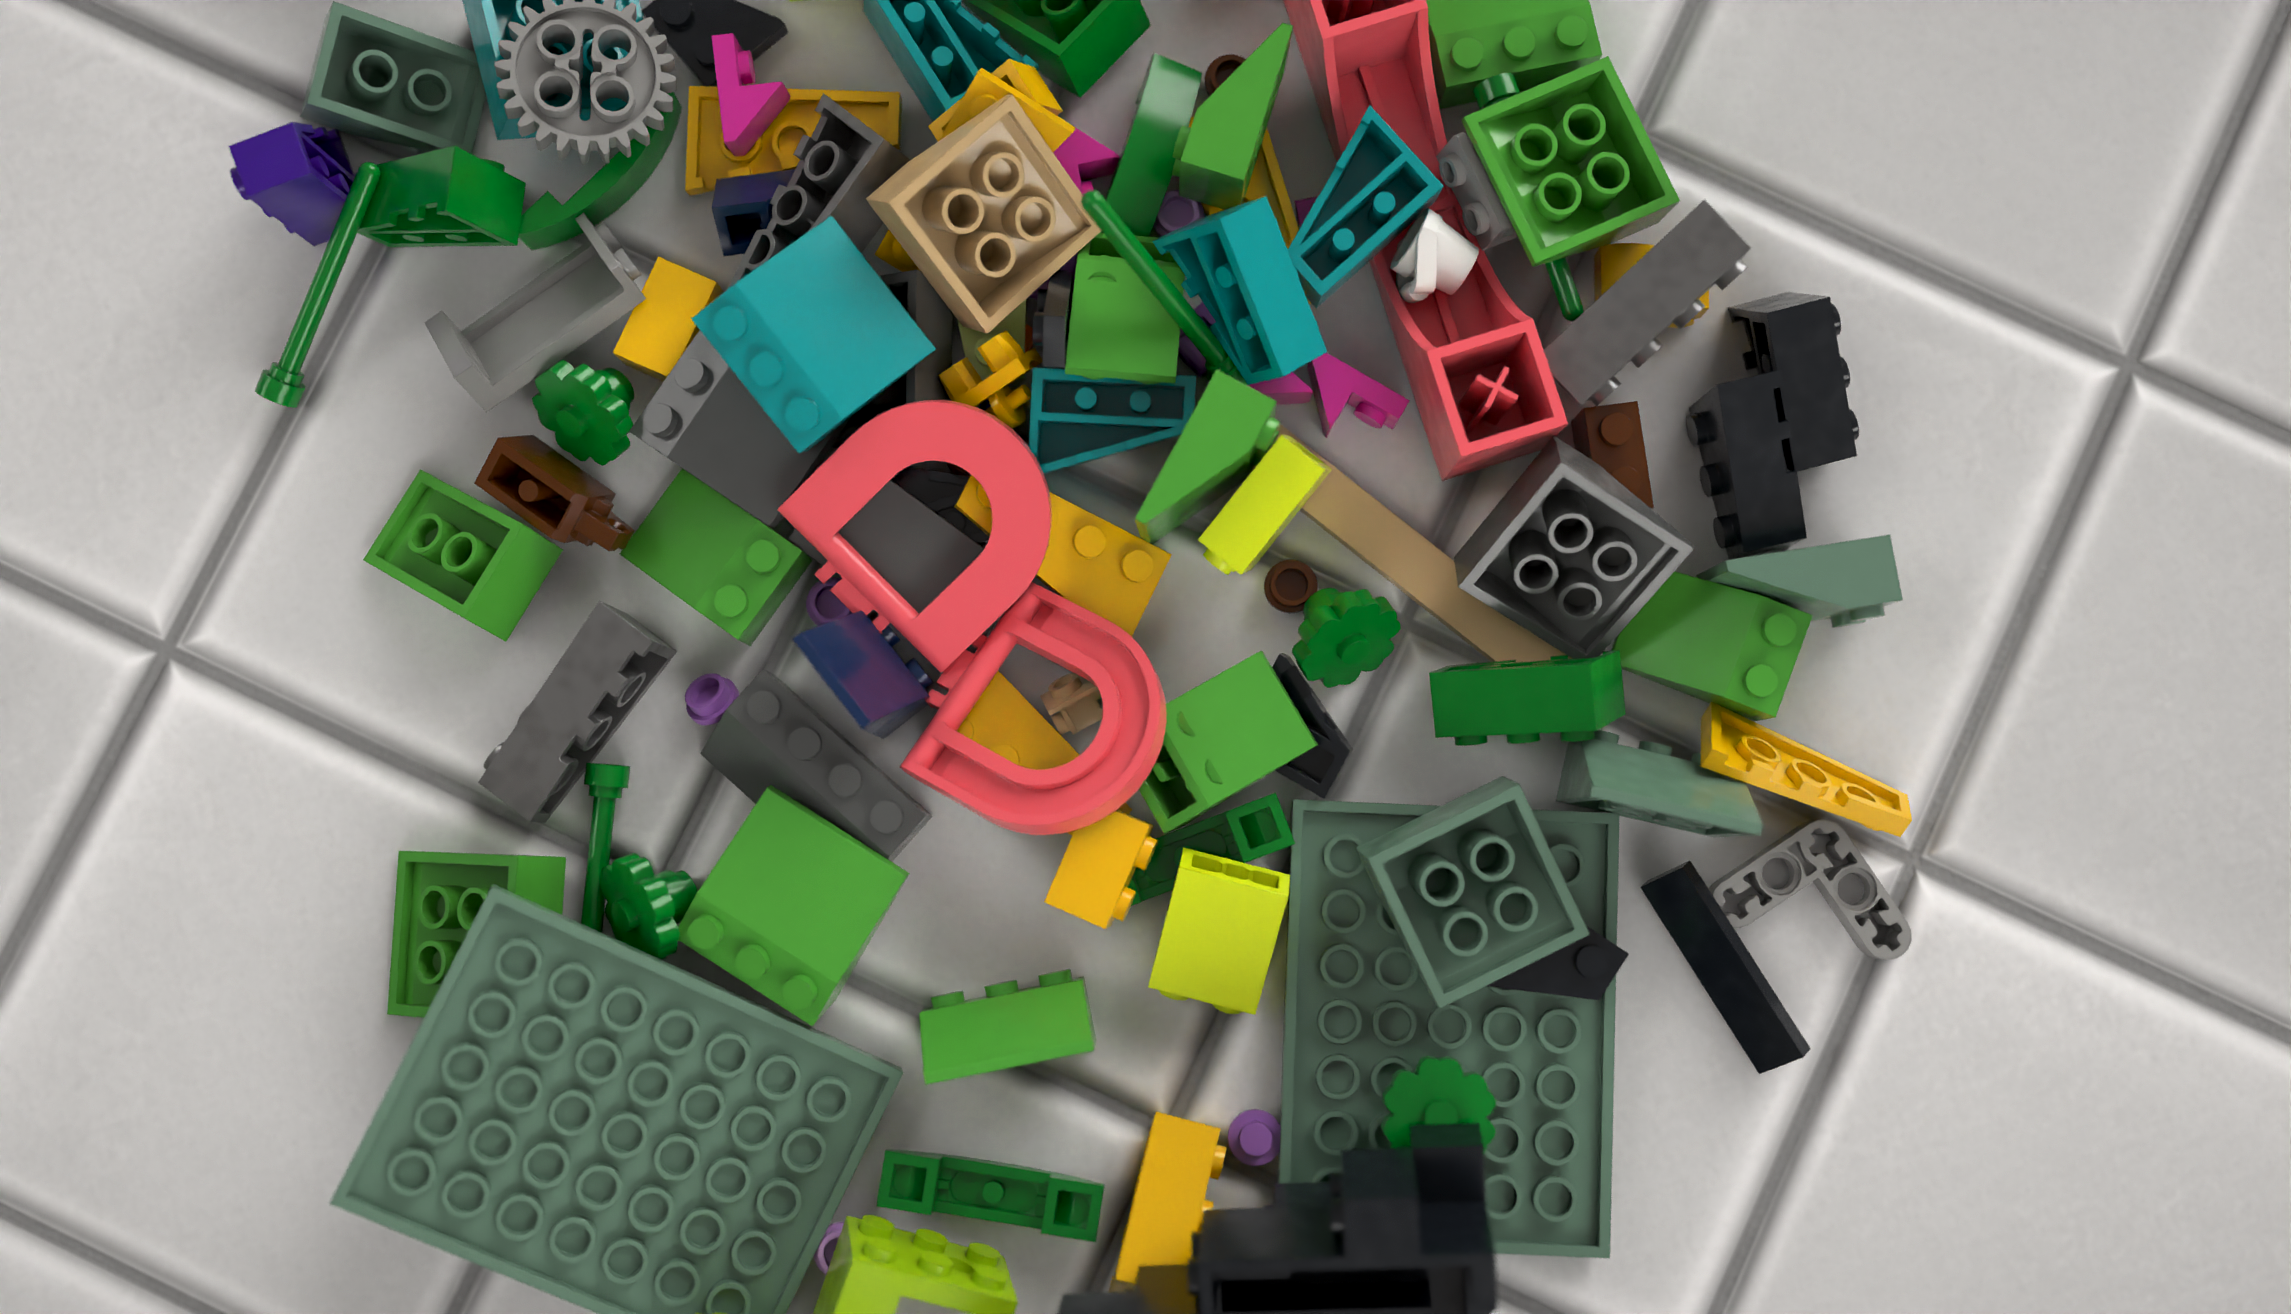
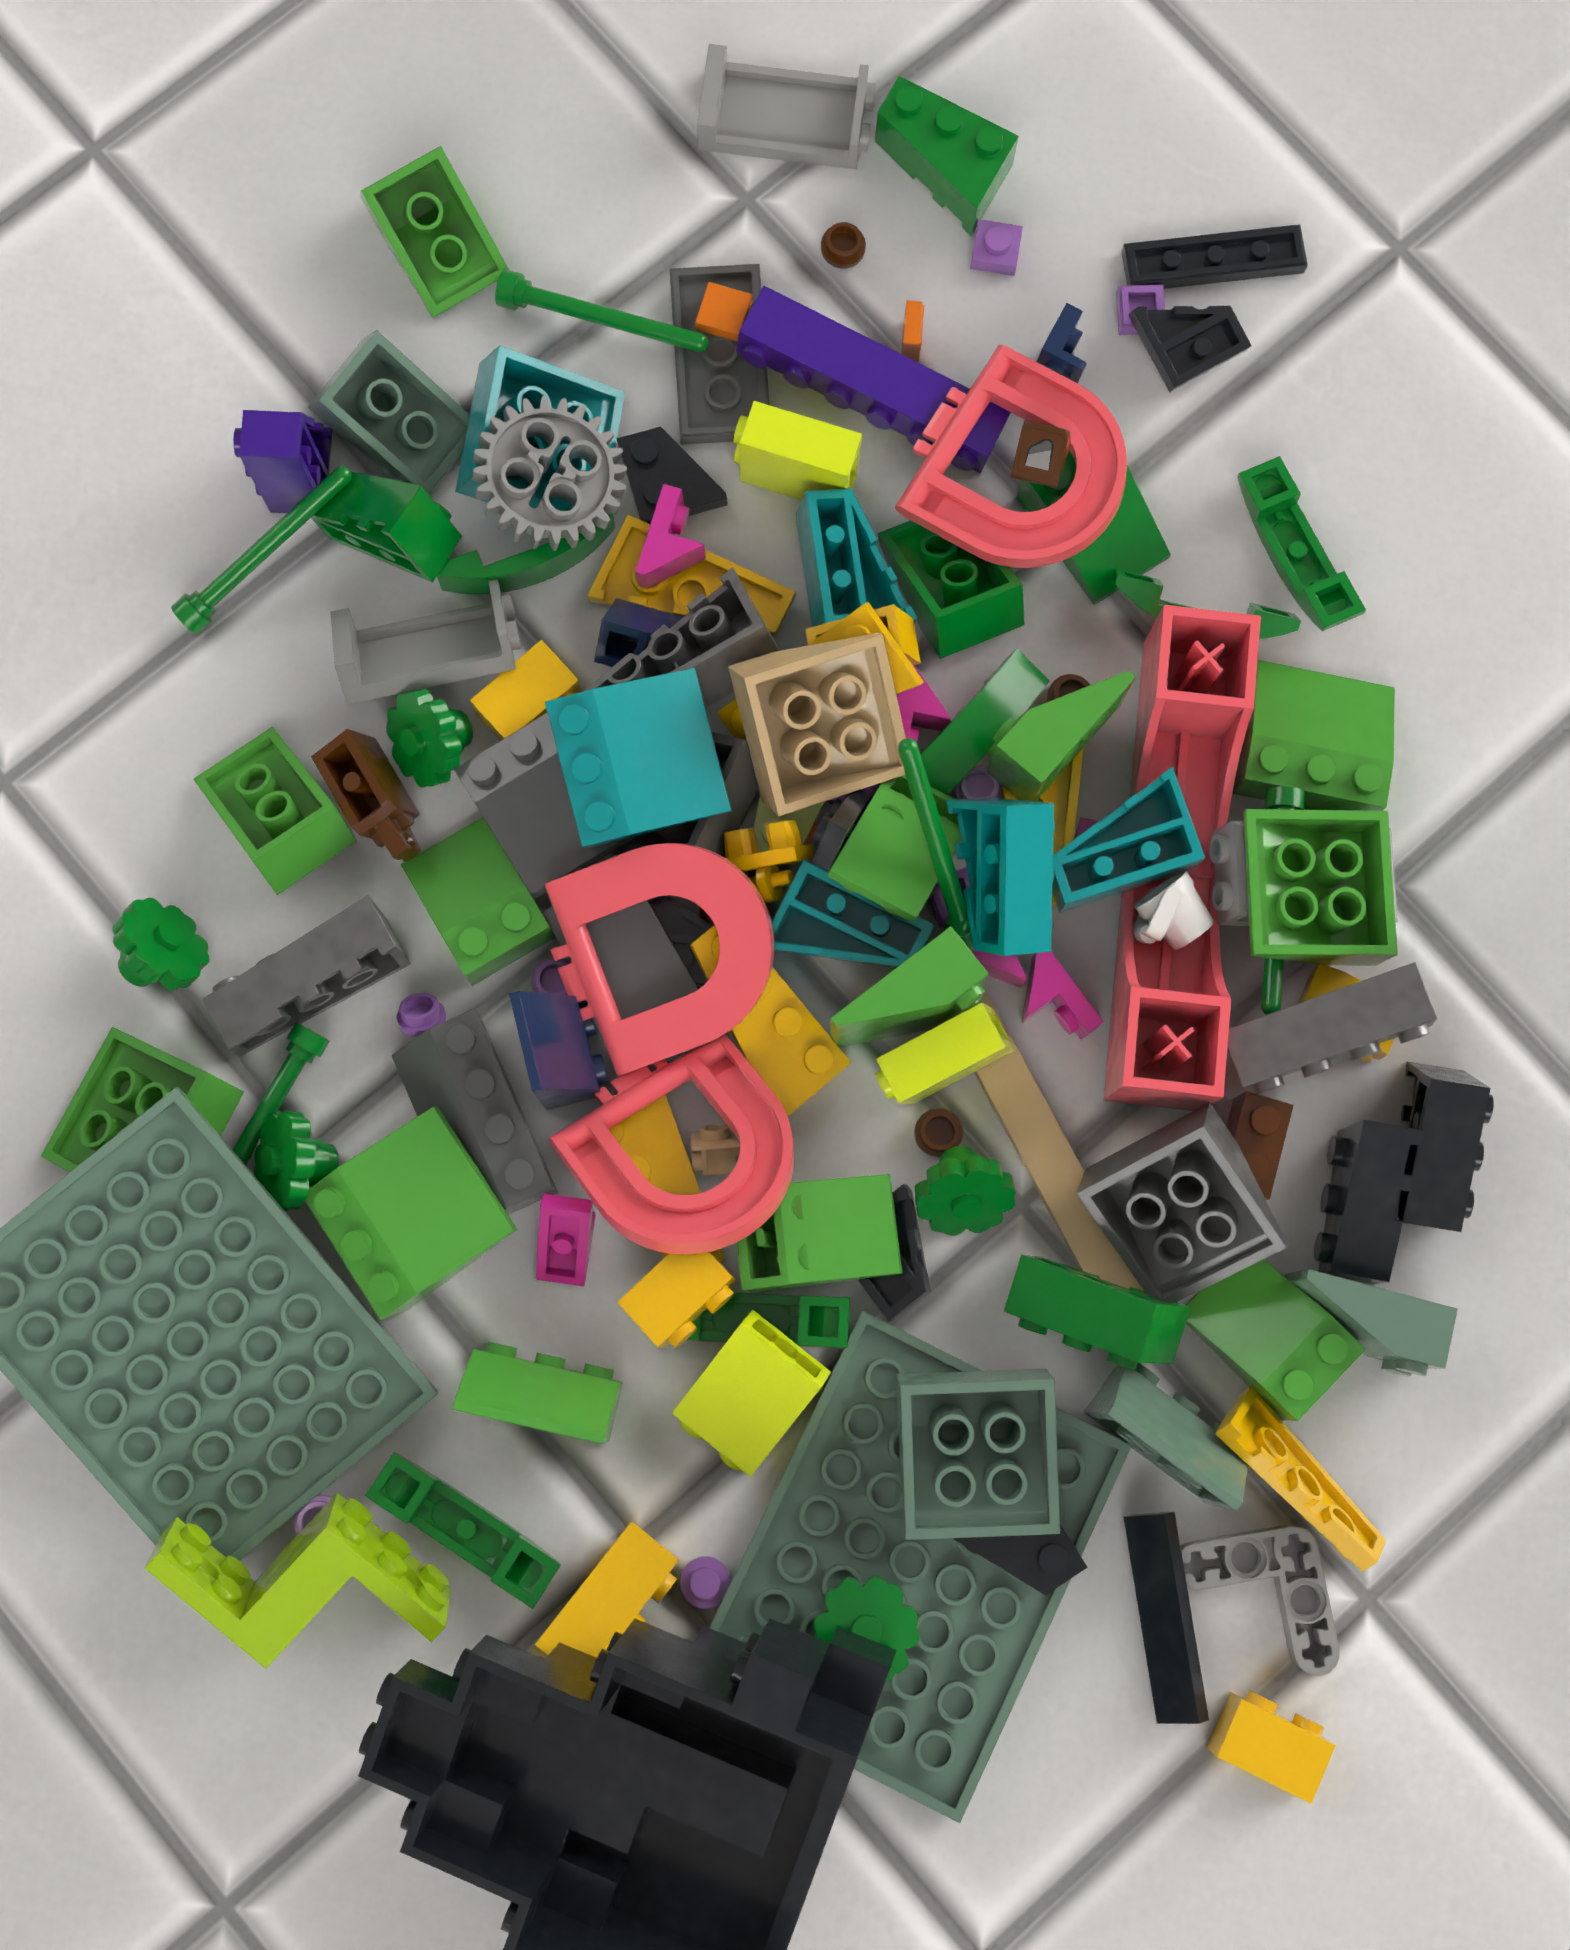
camera: 20 degrees right, 5 degrees down
(407, 747) = (158, 945): none -> green plant
(961, 861) = (564, 1239): none -> dark pink slope
(1881, 1045) = (1270, 1746): none -> yellow brick

